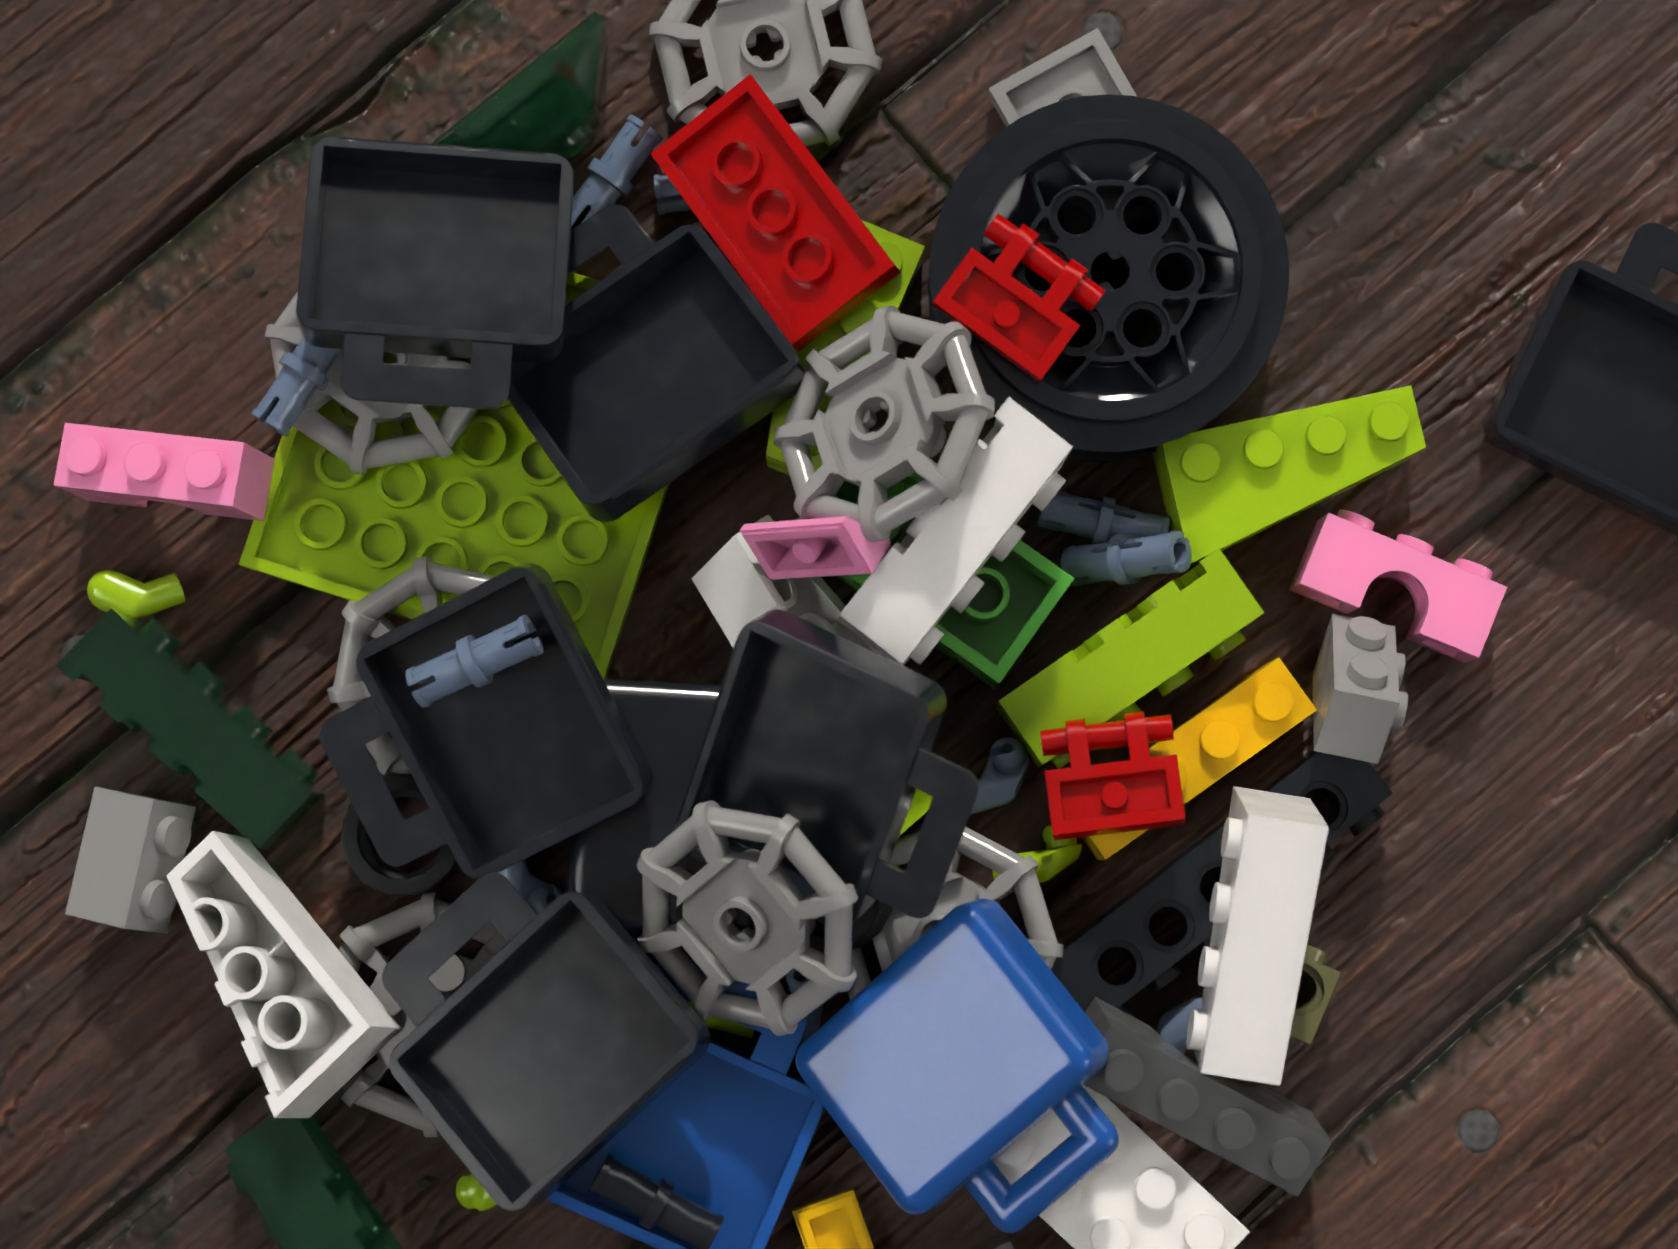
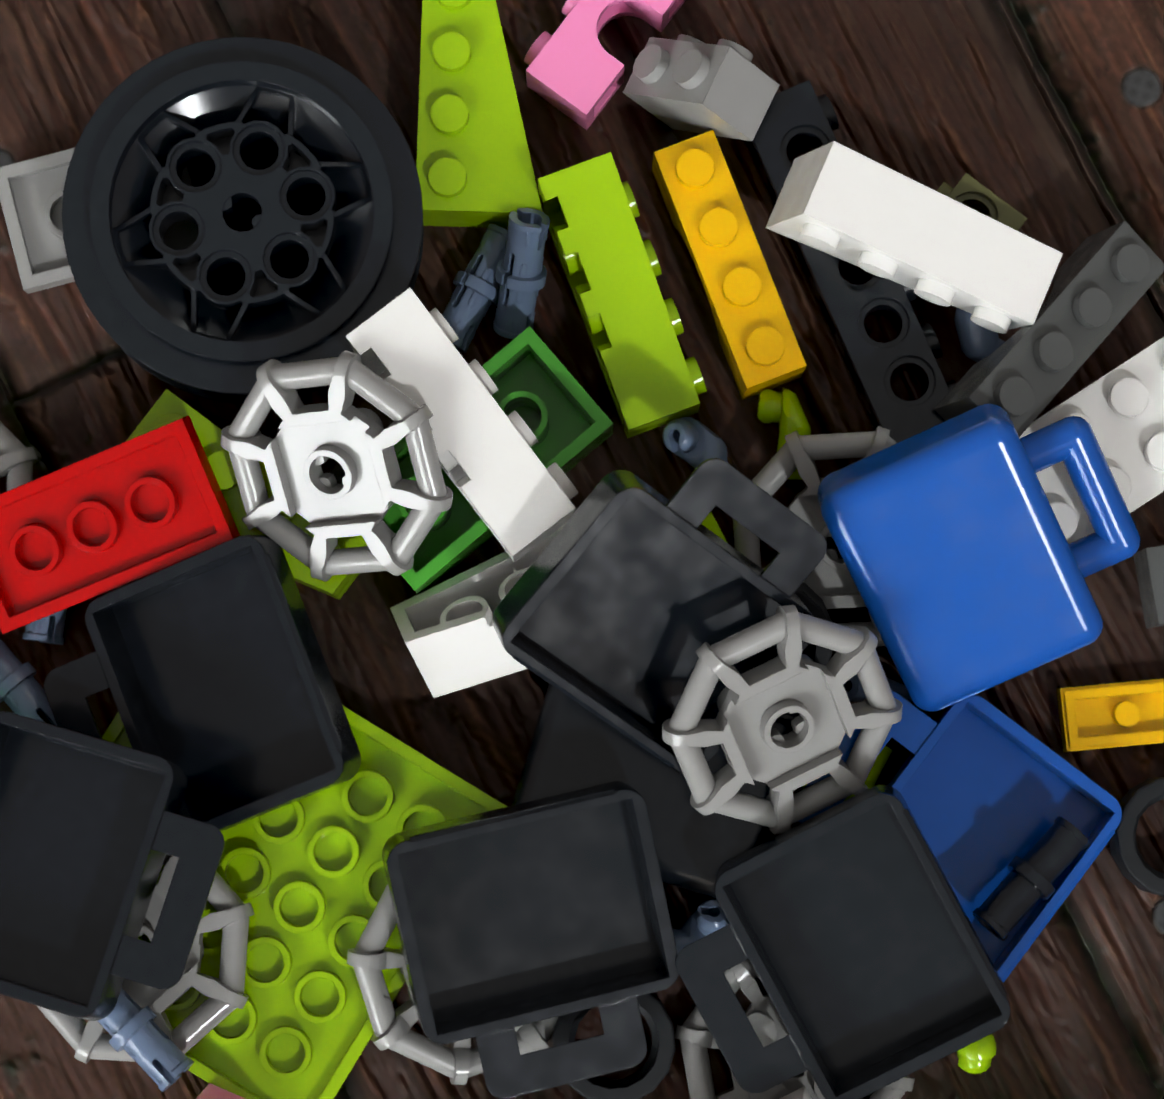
camera: 70 degrees left, 0 degrees up
(474, 661) = (467, 925): sand blue pin -> none
(813, 547) = (441, 565): bright pink slope -> none
(1005, 311) = (259, 319): red plate -> none
(1114, 794) = (749, 339): red plate -> none

